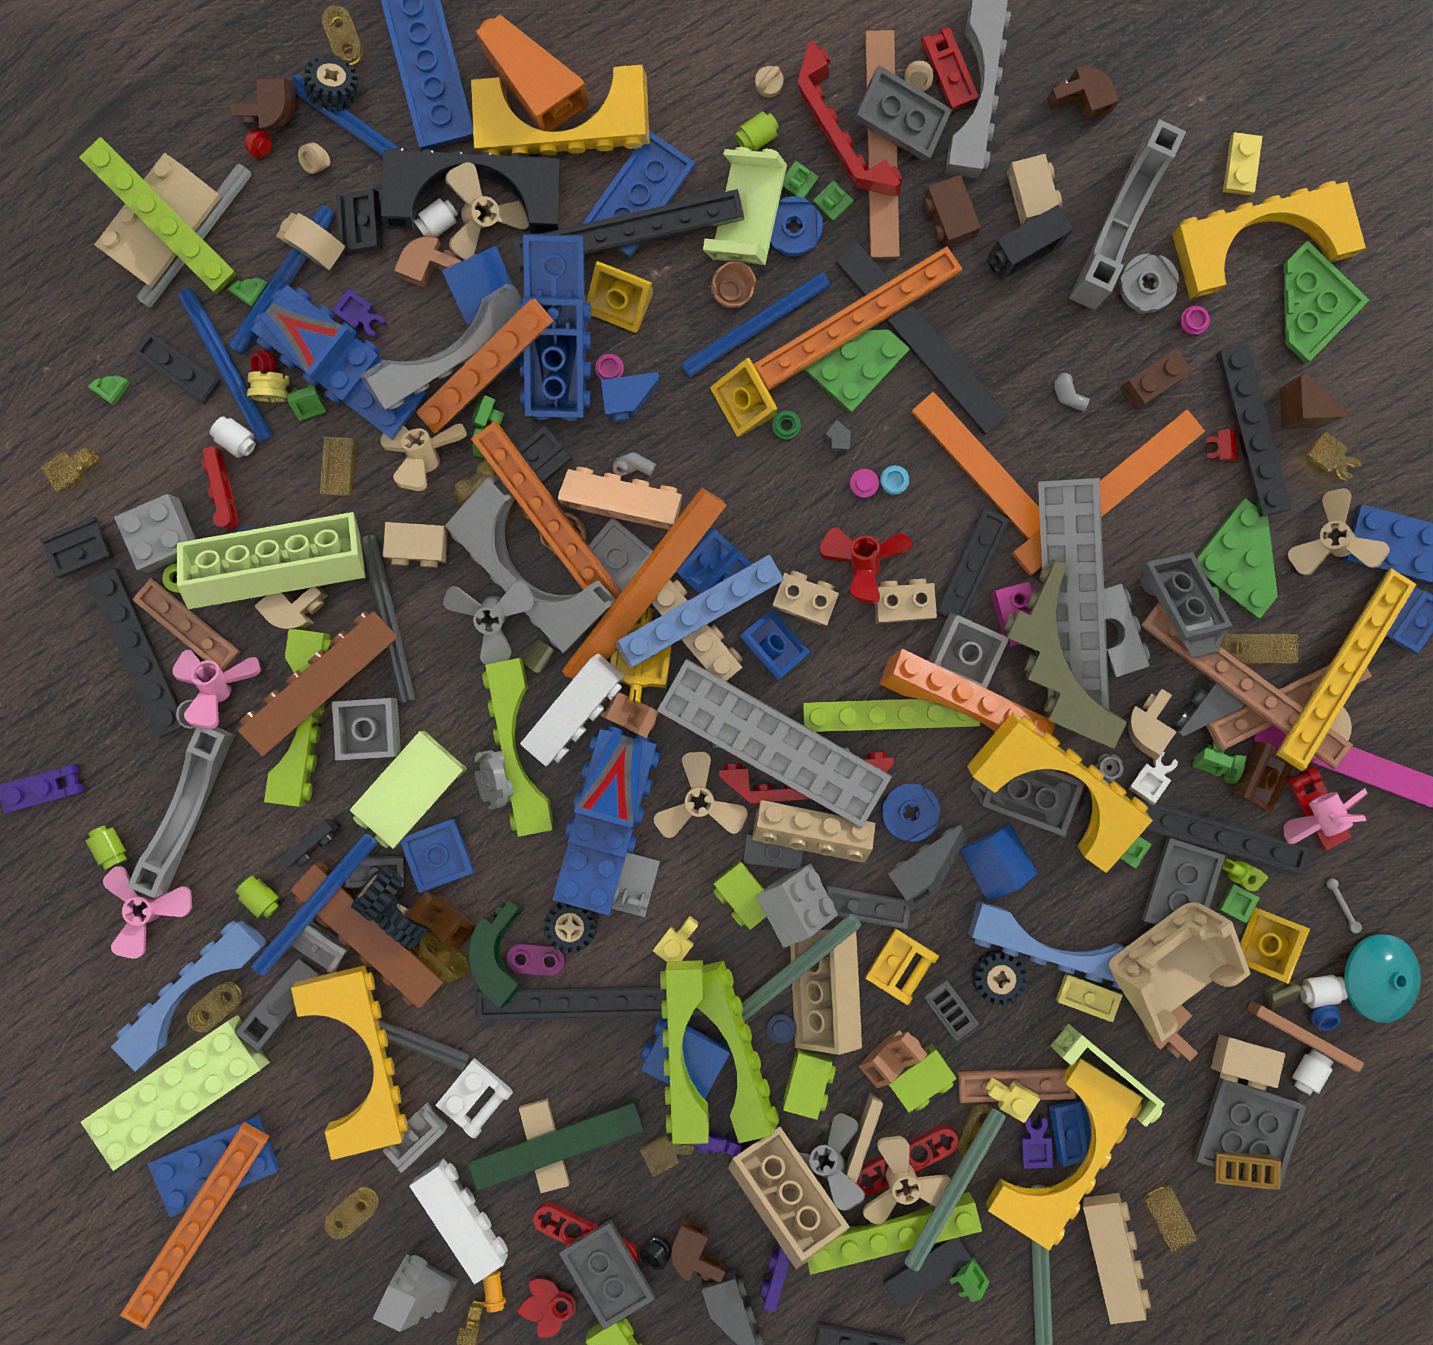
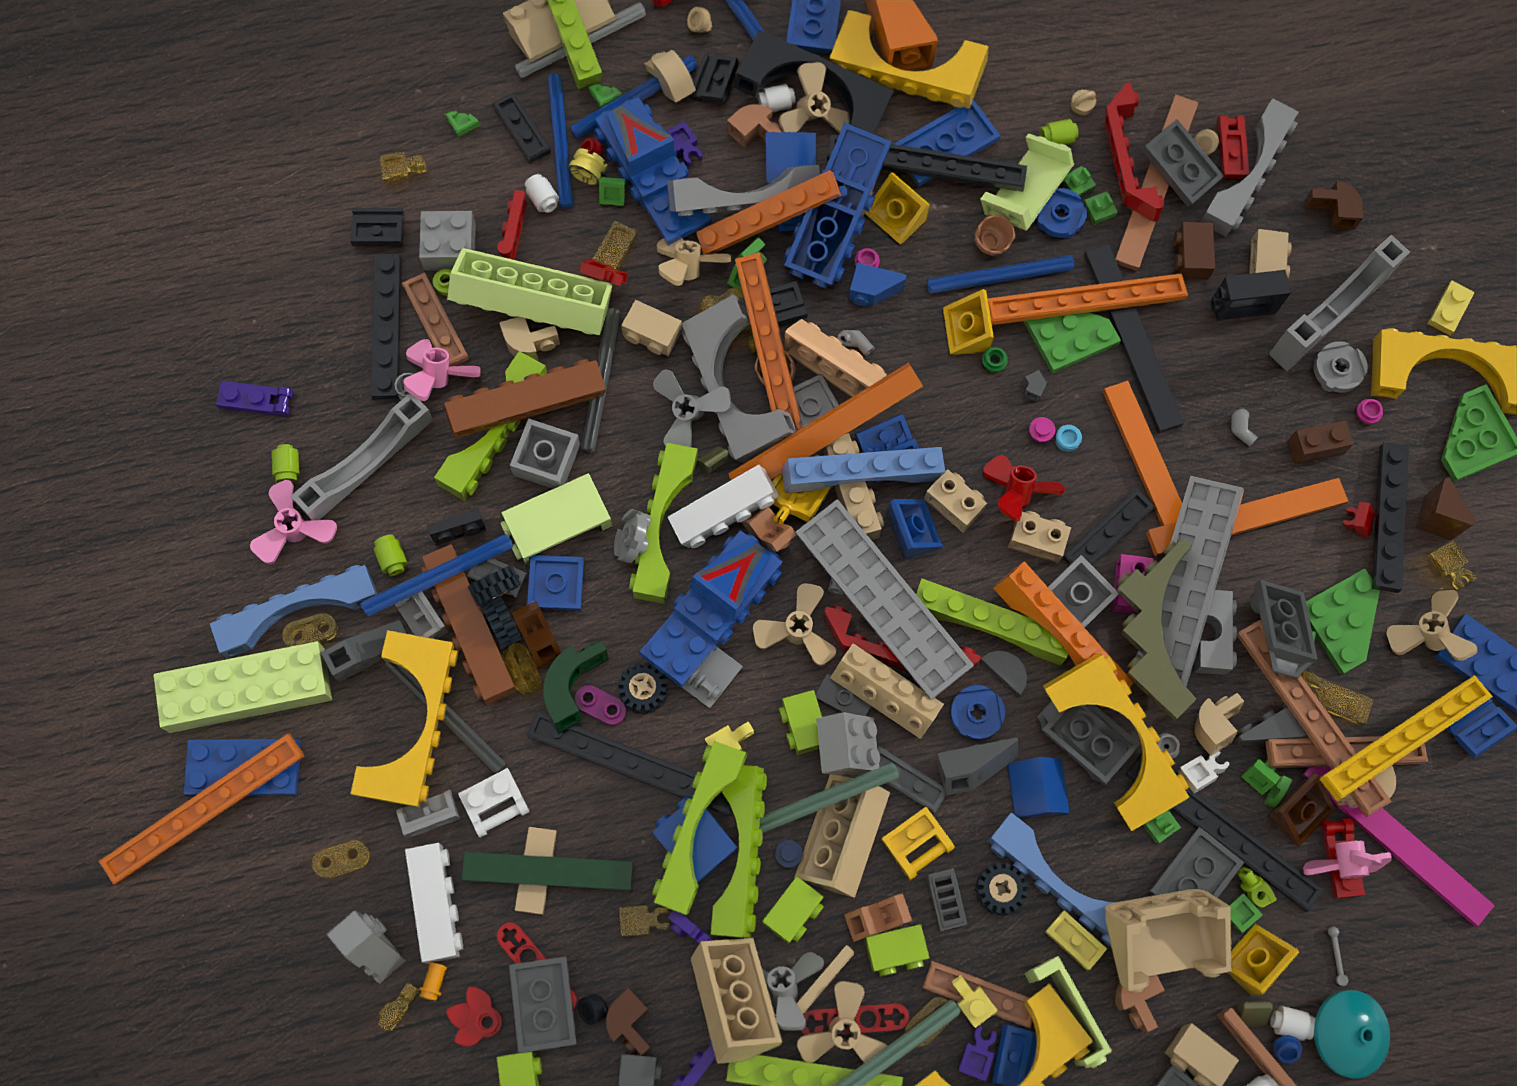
camera: 20 degrees right, 15 degrees down
(335, 502) = (601, 271): none -> red plate
(923, 753) = (1007, 669): none -> dark grey tile

